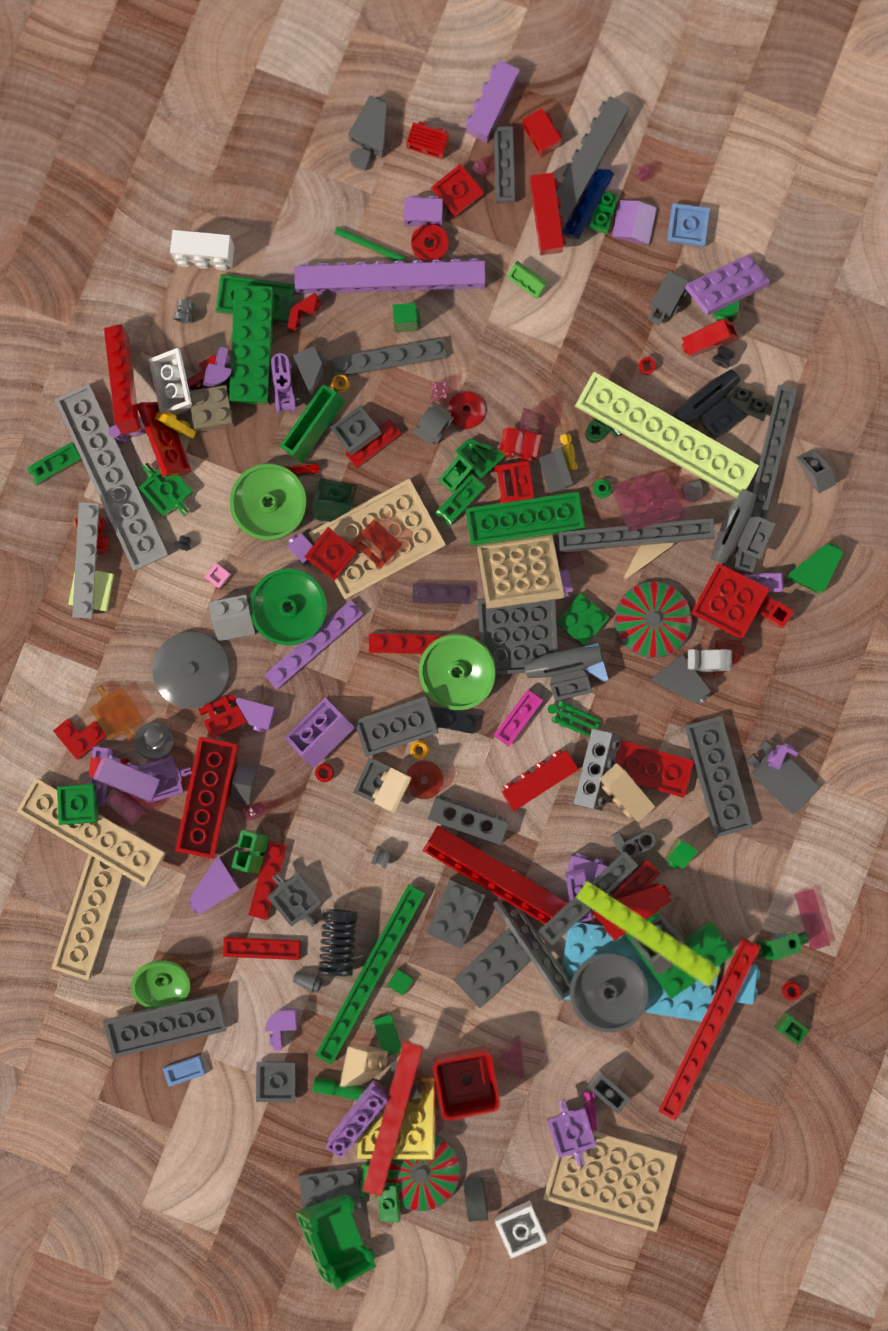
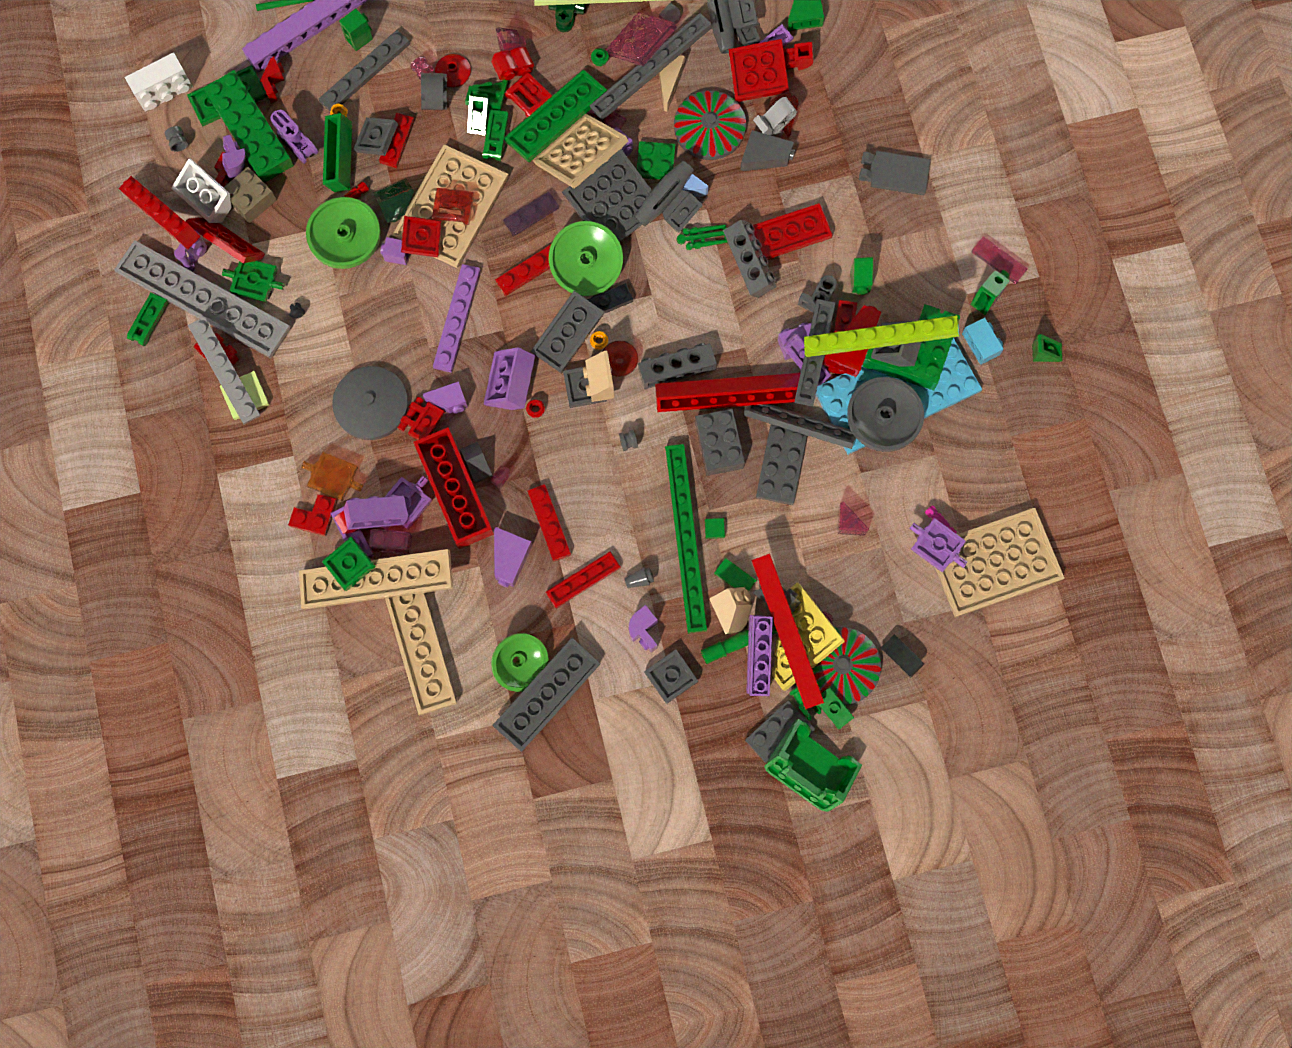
camera: 35 degrees left, 10 degrees down
(153, 741) = (378, 475): dark grey plate -> none
(181, 427) = (227, 222): yellow plate -> none
(184, 1070) = (589, 722): medium blue tile -> none
(218, 575) = (341, 317): bright pink tile -> none
(231, 618) = (375, 339): light grey slope -> none
(250, 860) = (518, 497): green piece -> none
(288, 607) = (415, 300): green dish -> none
(294, 899) = (581, 520): dark grey plate -> none
(311, 368) = (306, 113): dark grey slope -> none
(342, 945) = (640, 520): black piece -> none
(461, 1099) = (828, 545): red plate -> none
(518, 718) = (659, 264): dark pink plate -> none
(520, 1229) = (956, 651): white brick -> none
(540, 780) = (710, 298): red brick -> none
(555, 471) = (555, 66): dark grey panel -> none
(568, 452) = (554, 47): yellow axle -> none
(608, 1091) = (943, 494): dark grey brick -> none
(626, 793) = (785, 257): tan brick -> none
(709, 1029) = (985, 390): red plate -> none
(718, 776) = (847, 203): dark grey plate -> none
(777, 756) = (880, 152): medium lavender bracket -> none
(797, 990) = (1027, 318): red plate -> none

